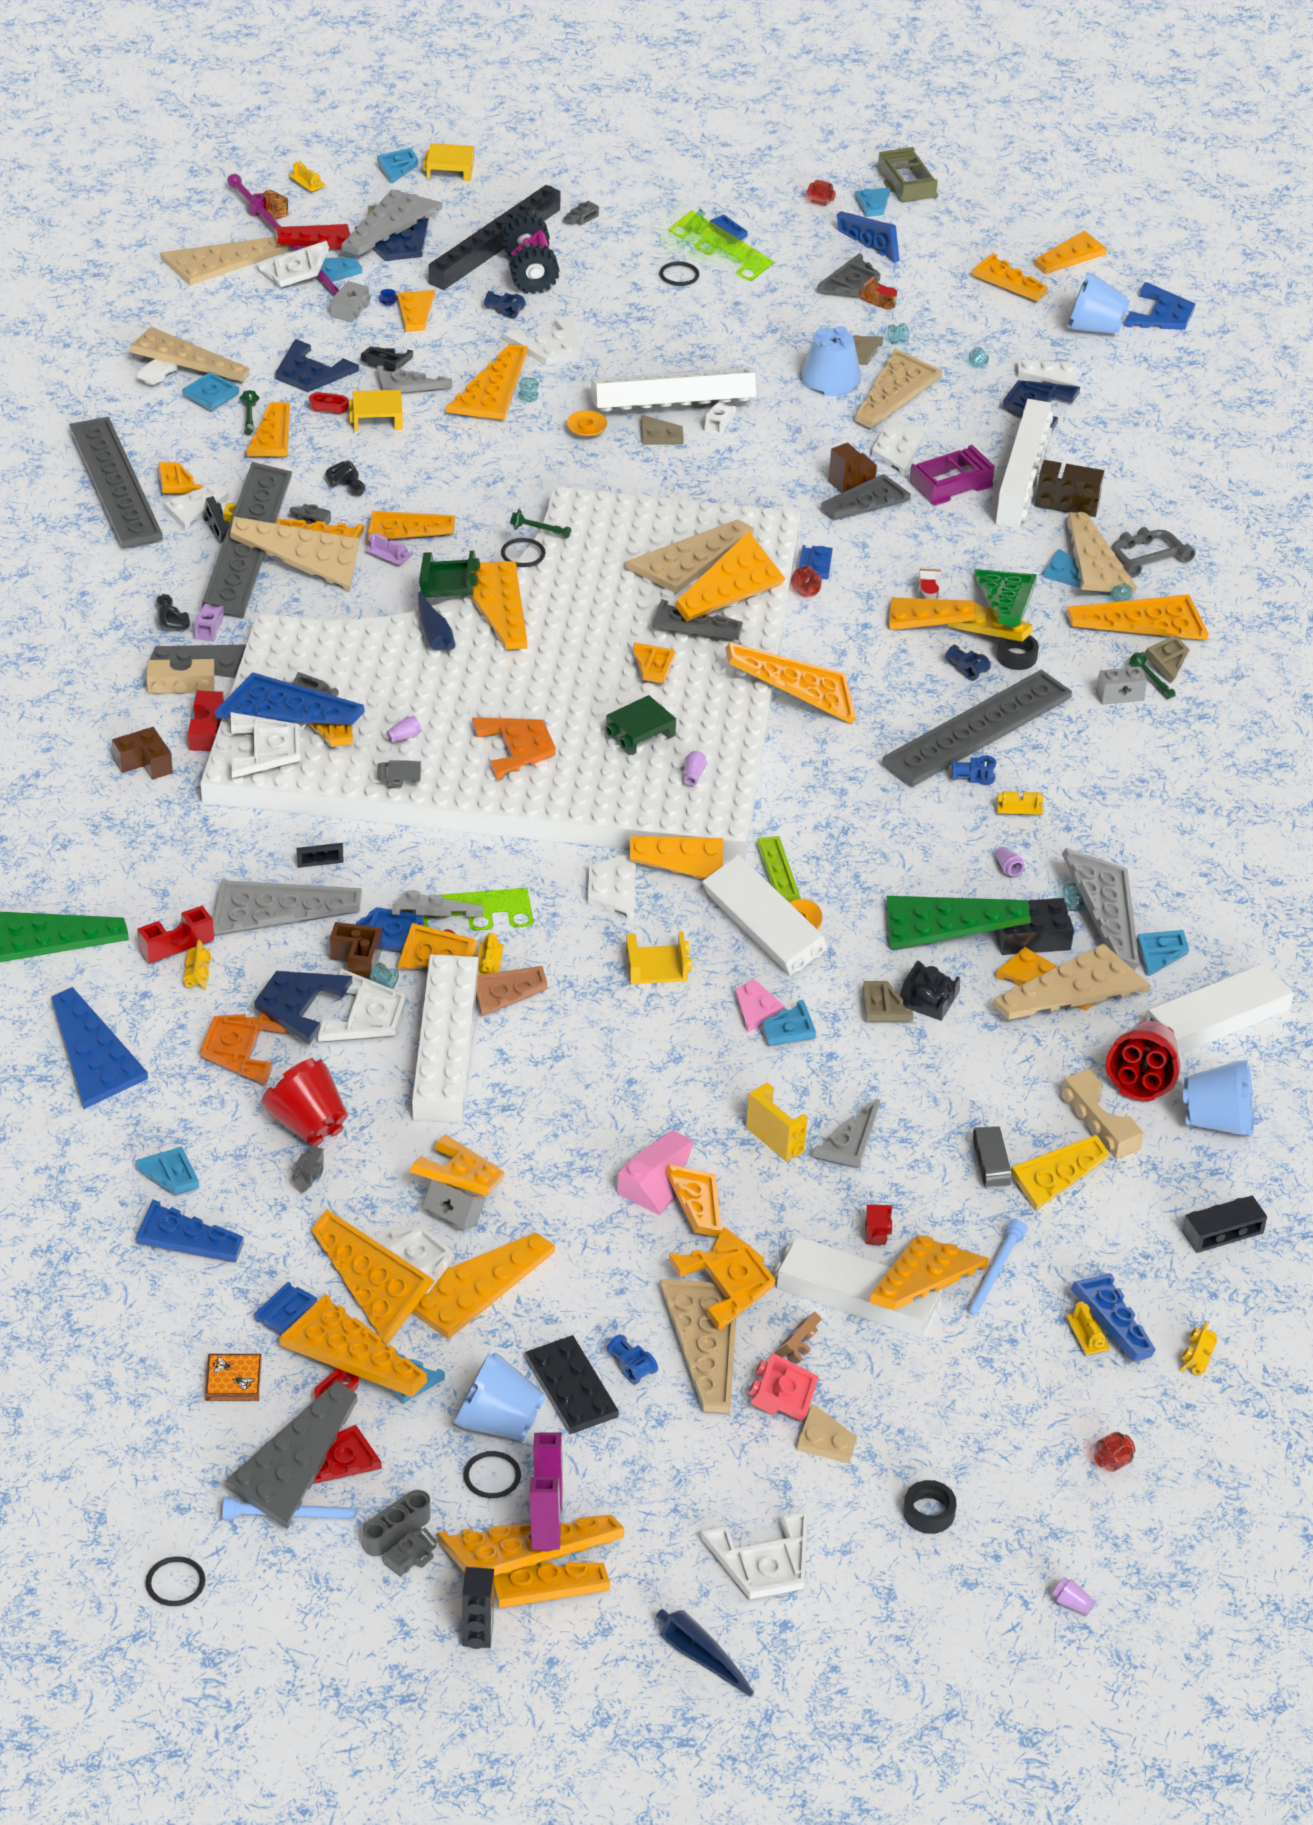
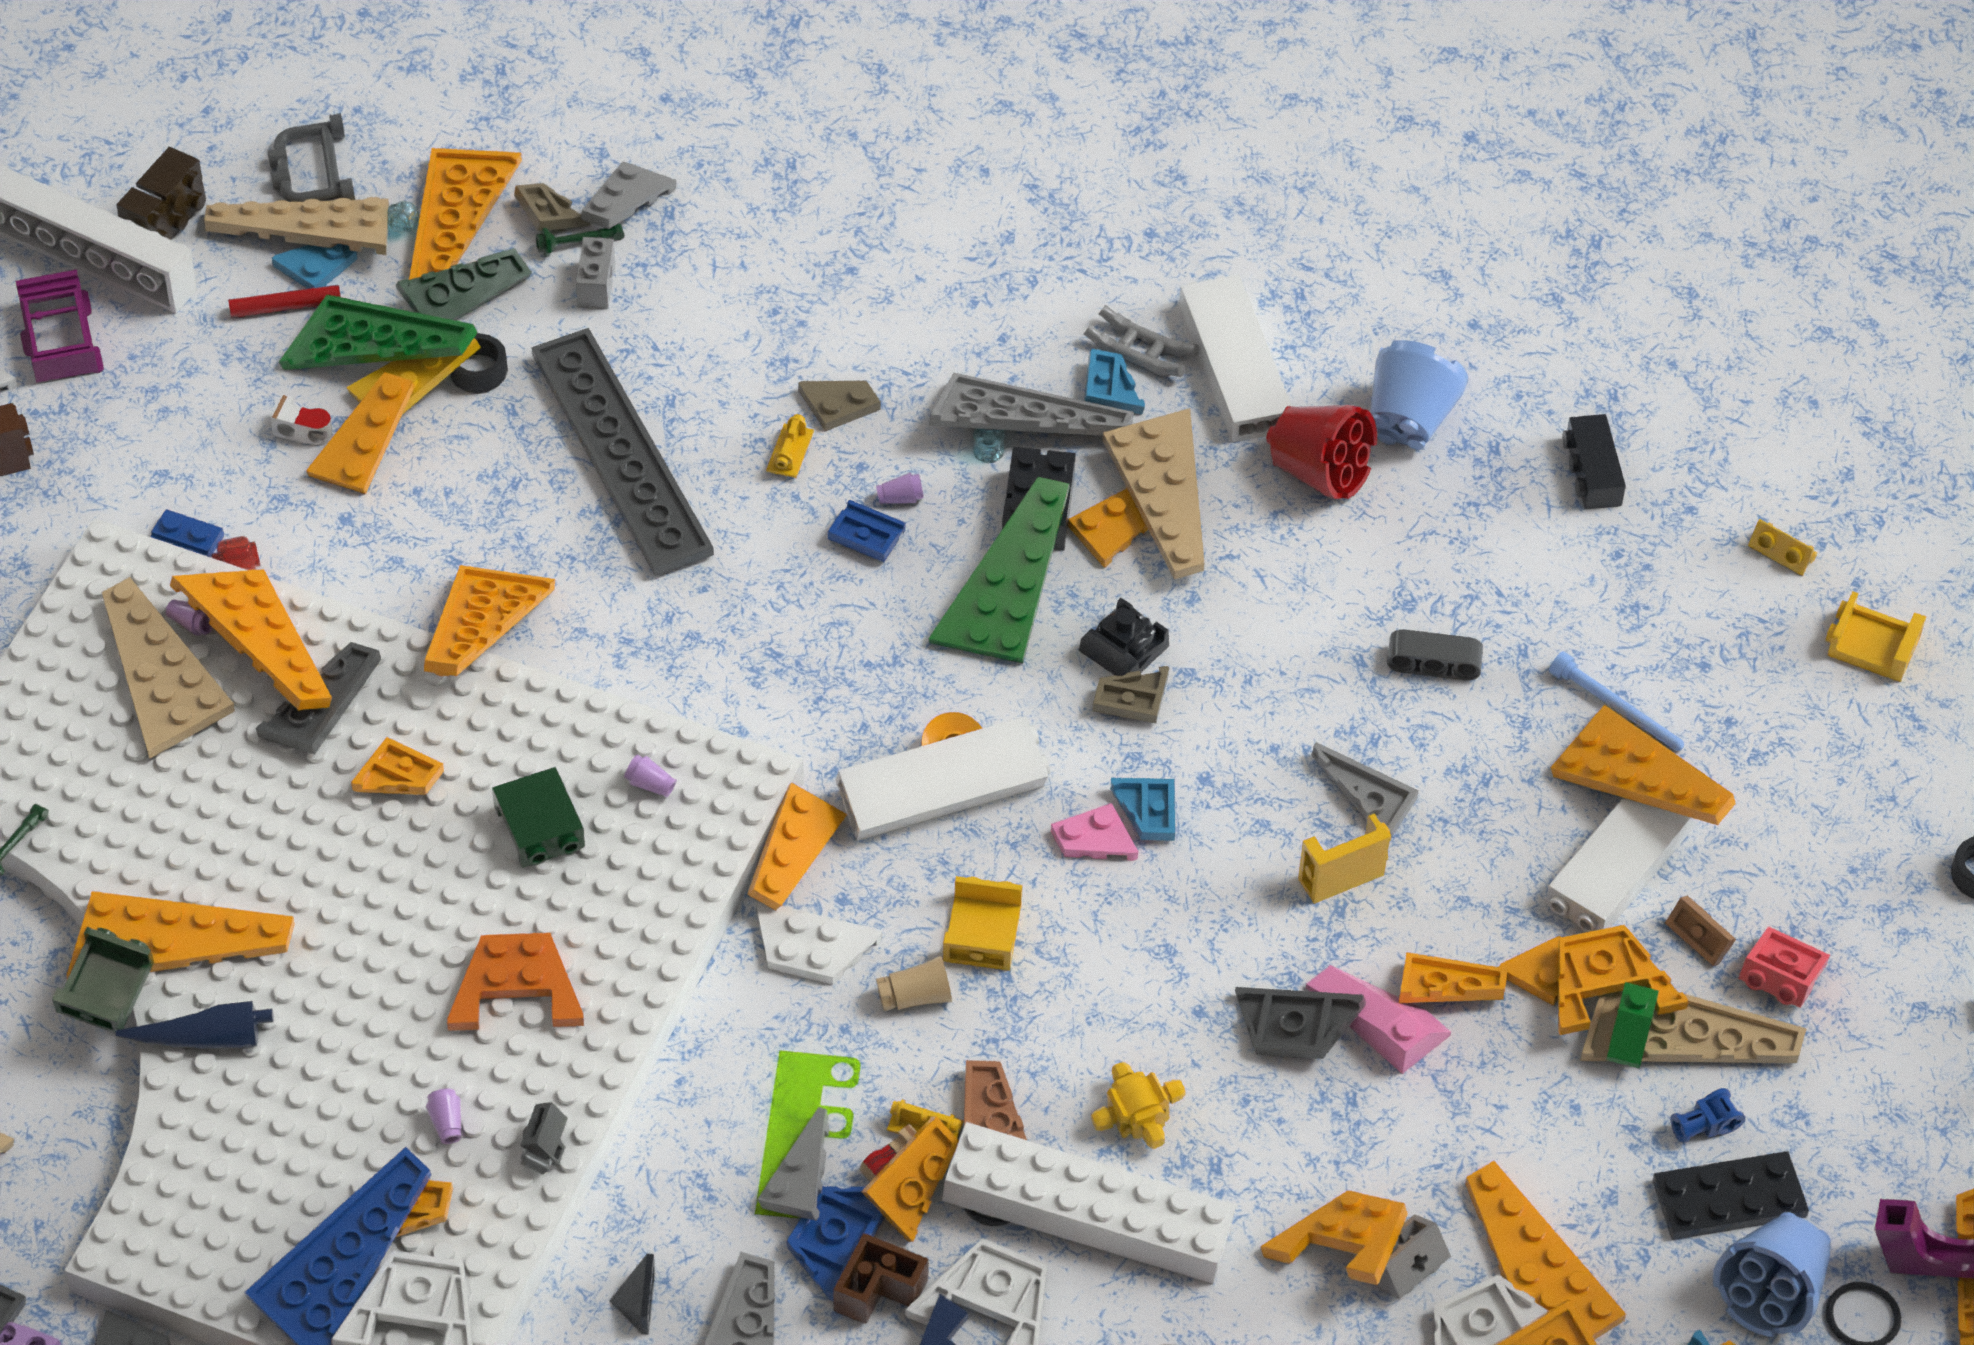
camera: 75 degrees left, 10 degrees up
(314, 684) = (306, 1214): dark grey piece -> none
(384, 976) = (939, 1256): clear light blue wheel -> none
(529, 564) = (64, 852): black tyre -> none
(533, 1051) = (1138, 1105): none -> yellow piece
(594, 935) = (915, 986): none -> tan plant
(632, 1122) = (1296, 1021): none -> dark grey wing
(687, 1295) = (1632, 1025): none -> green slope
(778, 867) = (836, 745): lime tile -> none
(826, 1437) = (1858, 945): tan wing -> none
(867, 496) = (63, 437): dark grey wing -> none
(878, 1224) = (1530, 802): red brick -> none
(965, 850) = (866, 531): none -> blue plate
(968, 662) = (483, 423): dark blue connector -> none
(975, 769) = (712, 476): blue connector -> none
(1026, 562) = (281, 301): none -> red piece
(1054, 1172) = (1470, 596): yellow wing -> none
(1070, 628) = (464, 286): none -> dark green wing
(1075, 822) = (839, 401): none -> dark tan wing
(1087, 1330) = (1736, 642): yellow hinge -> none
(1111, 1312) = (1719, 608): blue wing -> none
(1114, 1451) = (1933, 667): clear red head -> none
(1117, 1133) = (1352, 533): tan arch -> none
(1133, 1411) = (1874, 639): none -> yellow panel
(1199, 952) = (1131, 332): none -> light grey piece
(1207, 688) = (623, 193): none -> light grey wing

